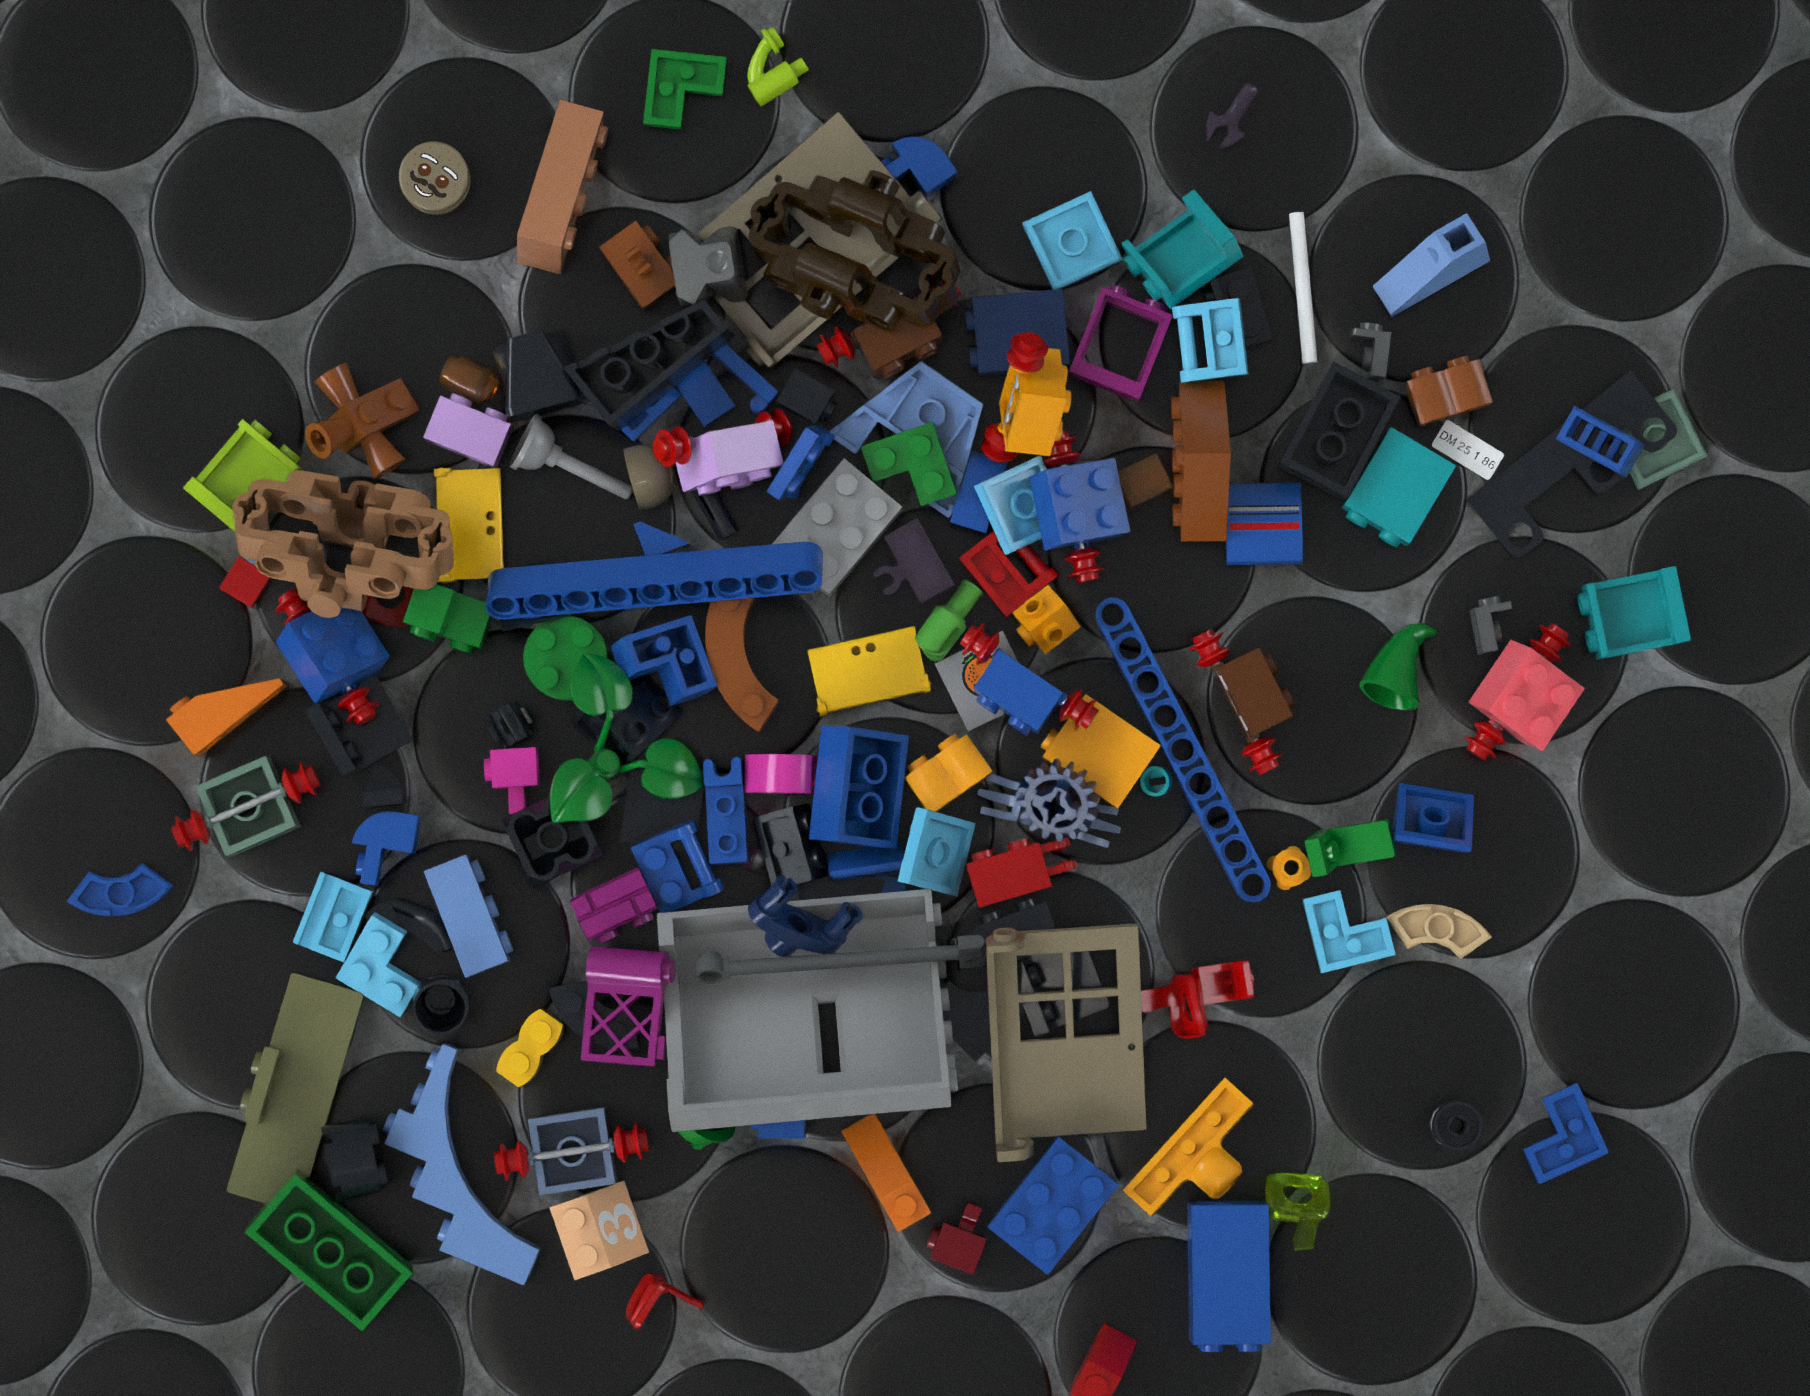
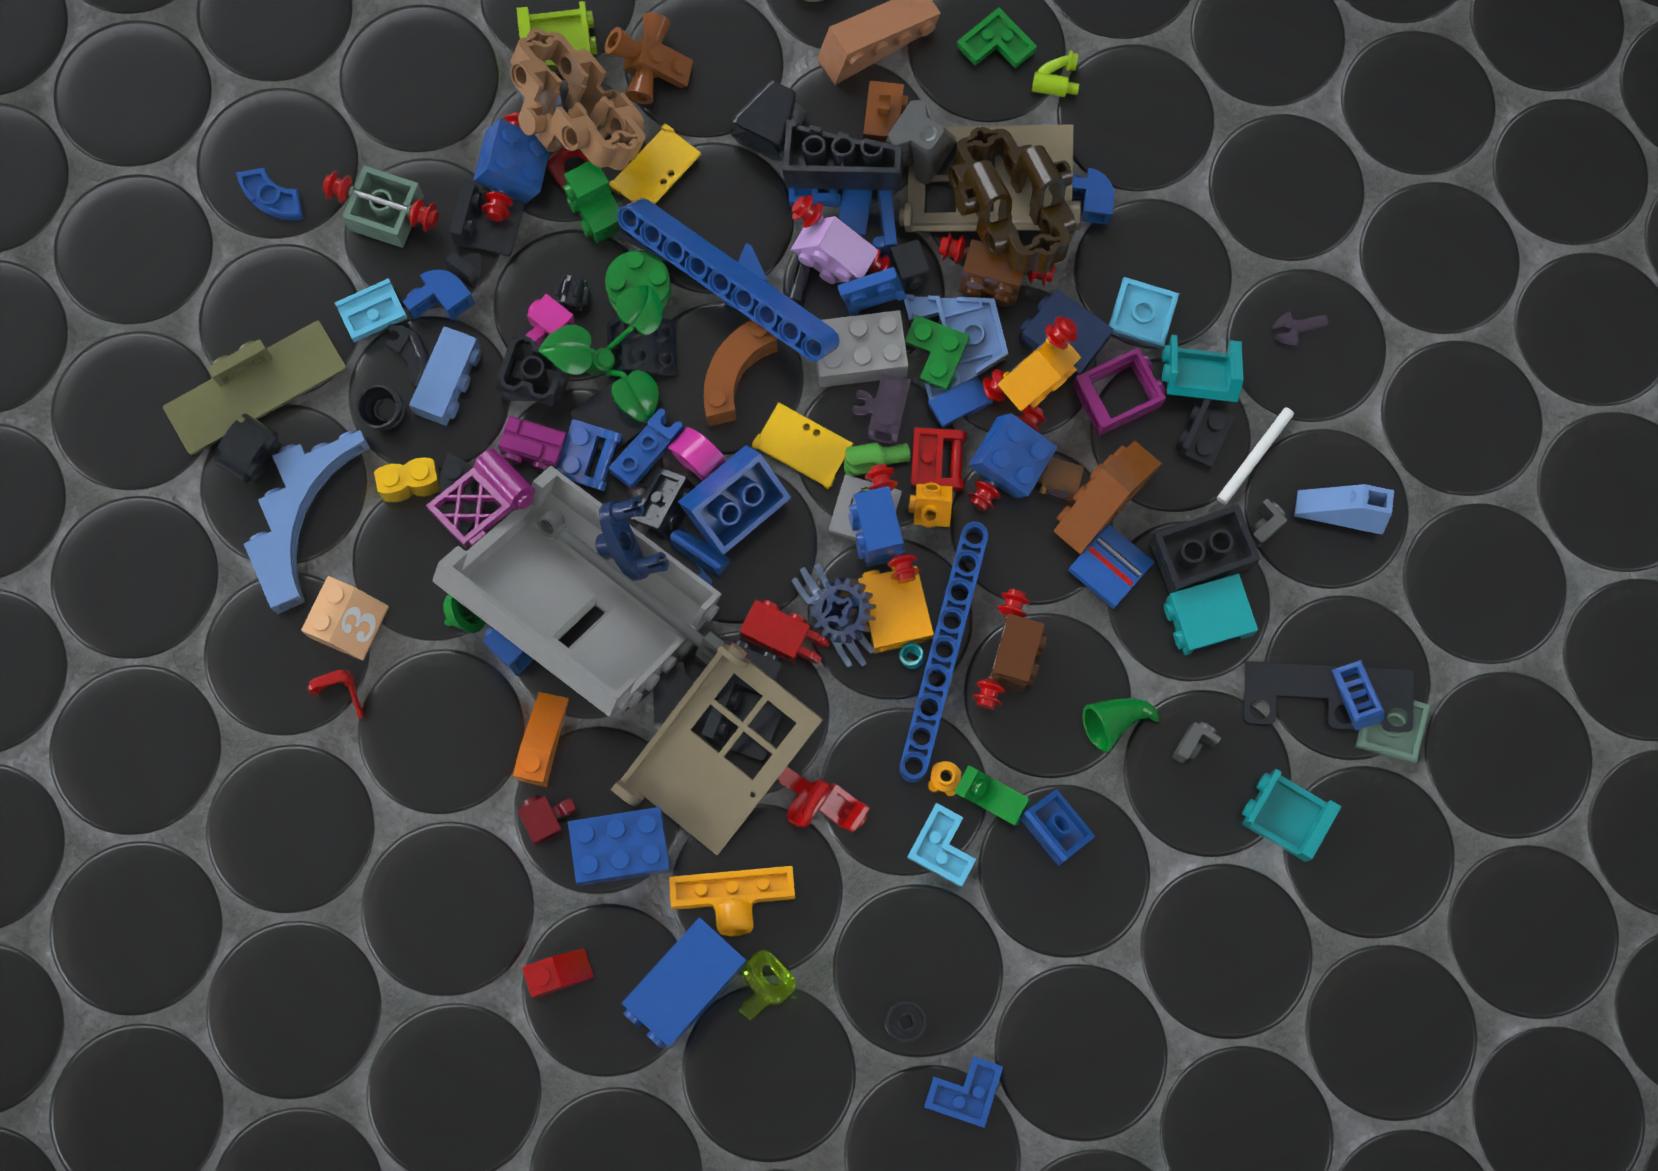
camera: 40 degrees right, 10 degrees down
(213, 715) = (412, 144): orange slope -> none
(244, 582) = (502, 93): red tile -> none
(329, 1249) = (182, 486): green brick -> none
(370, 969) = (365, 353): medium azure plate -> none
(469, 379) = (729, 91): clear orange brick -> none
(469, 431) = (702, 118): lavender brick -> none
(538, 448) = (731, 158): light grey piece -> none
(572, 1151) = (372, 556): sand blue brick -> none
(649, 478) = (779, 230): dark tan helmet -> none
(674, 652) = (700, 329): blue brick -> none
(936, 852) = (745, 577): medium azure plate -> none
(948, 773) = (793, 542): light orange brick -> none
(1011, 505) = (971, 424): medium azure plate -> none
(1222, 337) = (1181, 436): medium azure plate -> none
(1438, 925) = (1003, 894): tan tile -> none
(1447, 392) = (1290, 587): dark orange brick -> none
(1467, 449) = (1271, 633): white sticker -> none
(1524, 694) = (1179, 801): coral brick -> none

